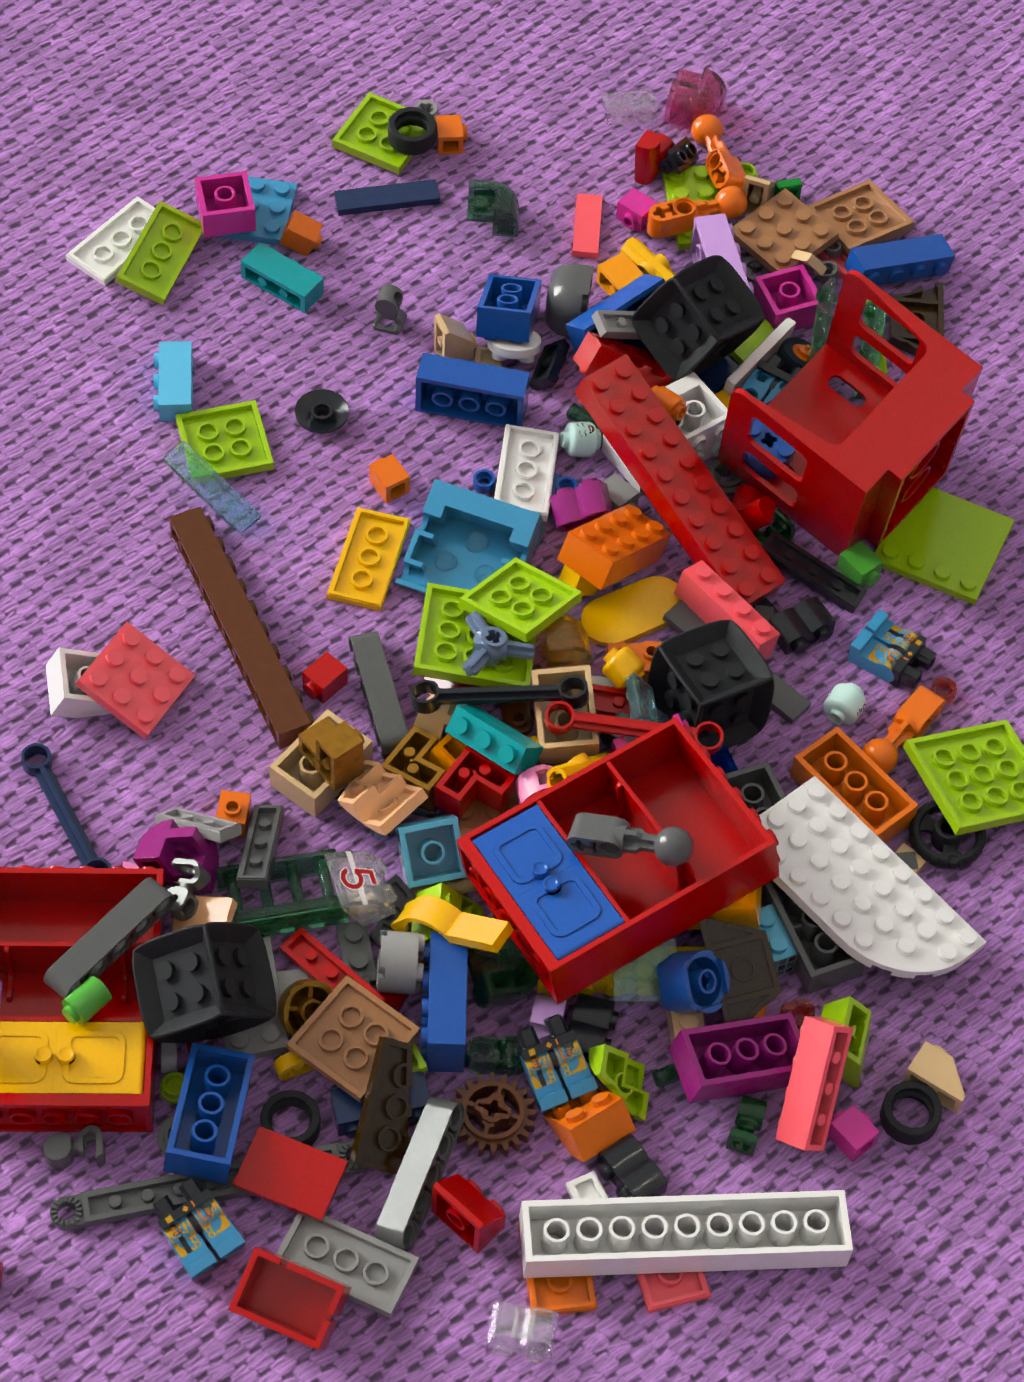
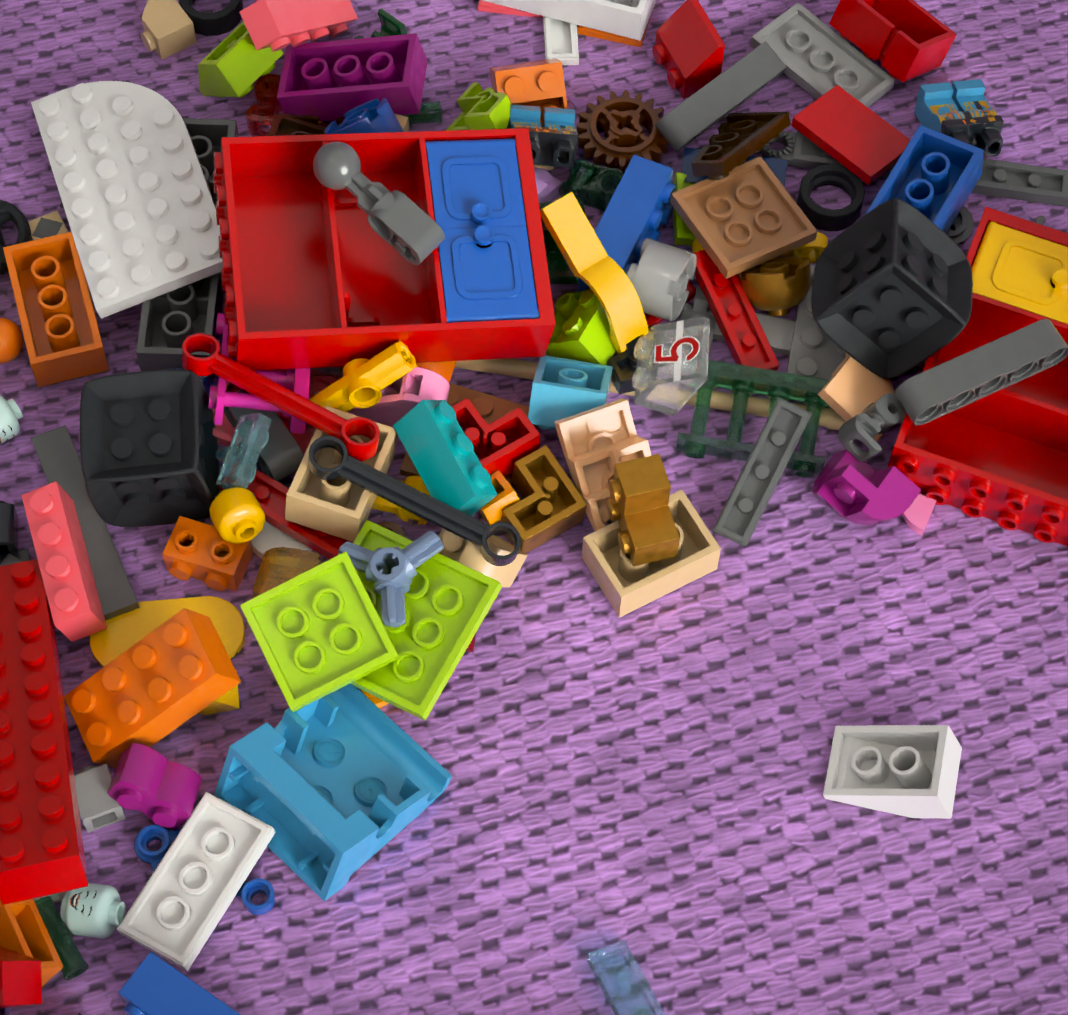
camera: 155 degrees left, 5 degrees up
(61, 806) = (976, 612): dark blue piece -> none
(86, 1001) = (1028, 310): bright green brick -> none
(135, 680) = (843, 744): coral plate -> none
(209, 826) = (827, 519): light grey tile -> none
(236, 808) = (776, 536): orange brick -> none
(240, 627) = (679, 797): reddish brown brick -> none
(324, 678) = (599, 672): red brick -> none
(369, 559) = (466, 839): yellow tile -> none
(378, 690) = (538, 633): dark grey beam -> none
(389, 478) = (387, 946): orange brick -> none
(631, 1169) = (510, 36): black brick -> none

